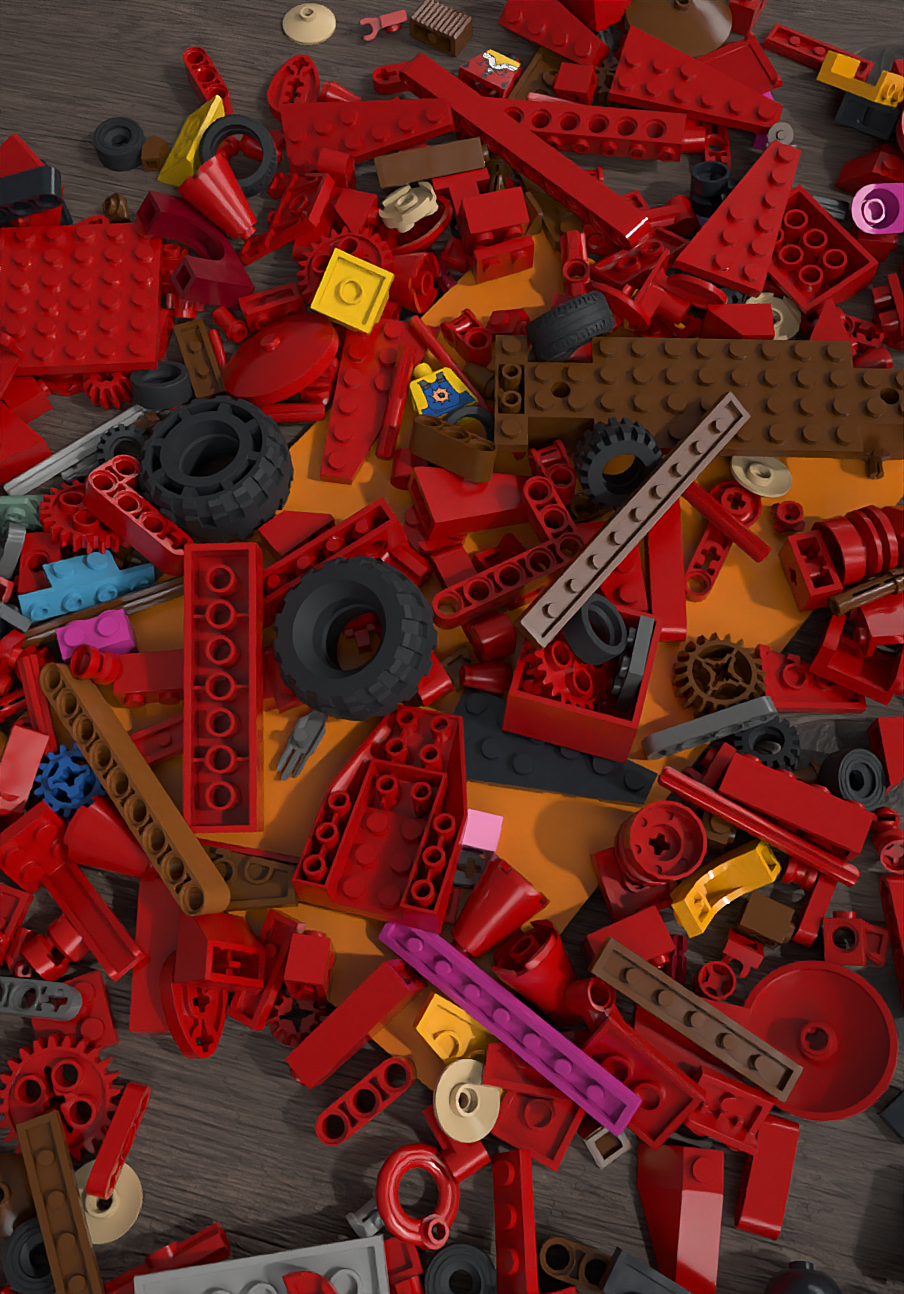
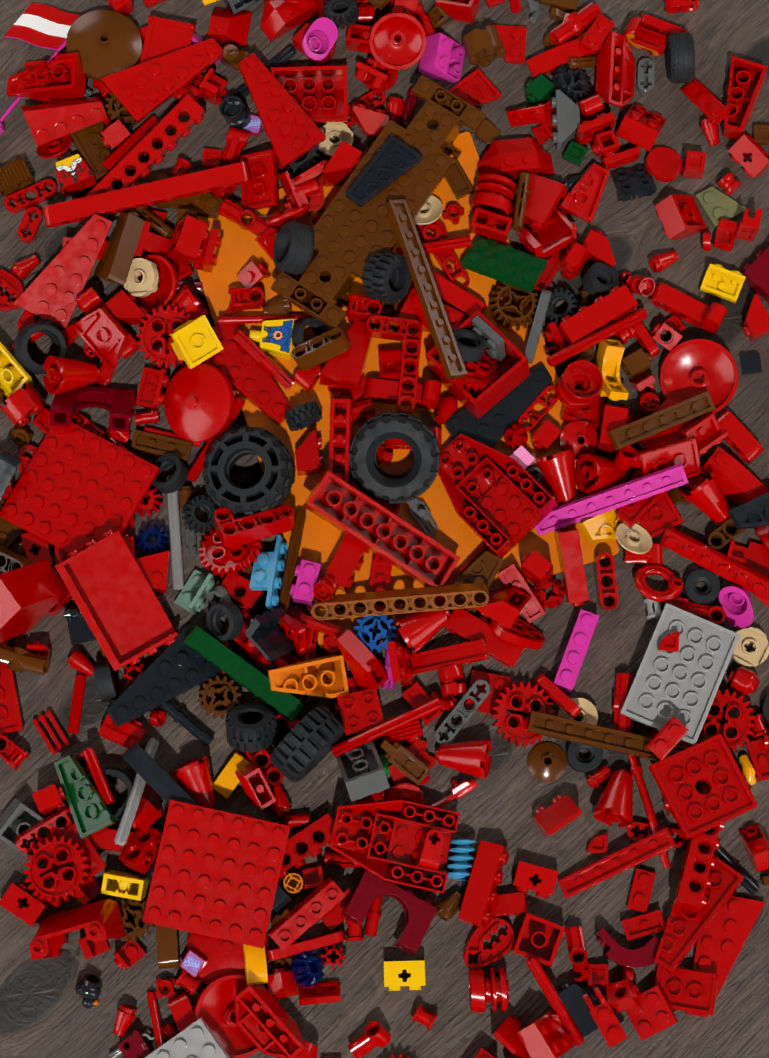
camera: 60 degrees left, 10 degrees up
(58, 421) = (156, 533): none -> clear blue gear
(149, 171) = (23, 405): none -> red brick
(215, 1123) = (575, 650): none -> dark pink brick
(344, 490) = (303, 416): none -> black tyre
(412, 45) = (33, 188): none -> red beam
(512, 44) = (55, 147): none -> red dish
(514, 802) = (515, 436): none -> red gear
(545, 848) = (545, 436): none -> red brick
(559, 798) = (552, 401): none -> red beam
(594, 898) = (575, 429): none -> red dish
(624, 1188) = (707, 496): none -> red cone
(723, 144) = (212, 85): none -> red panel
(768, 625) = (504, 264): none -> dark green plate
(771, 366) = (385, 168): none -> black wing
(814, 129) = (230, 27): none -> red slope
(840, 491) = (458, 181): none -> reddish brown tile
(850, 720) = (573, 261): none -> red brick

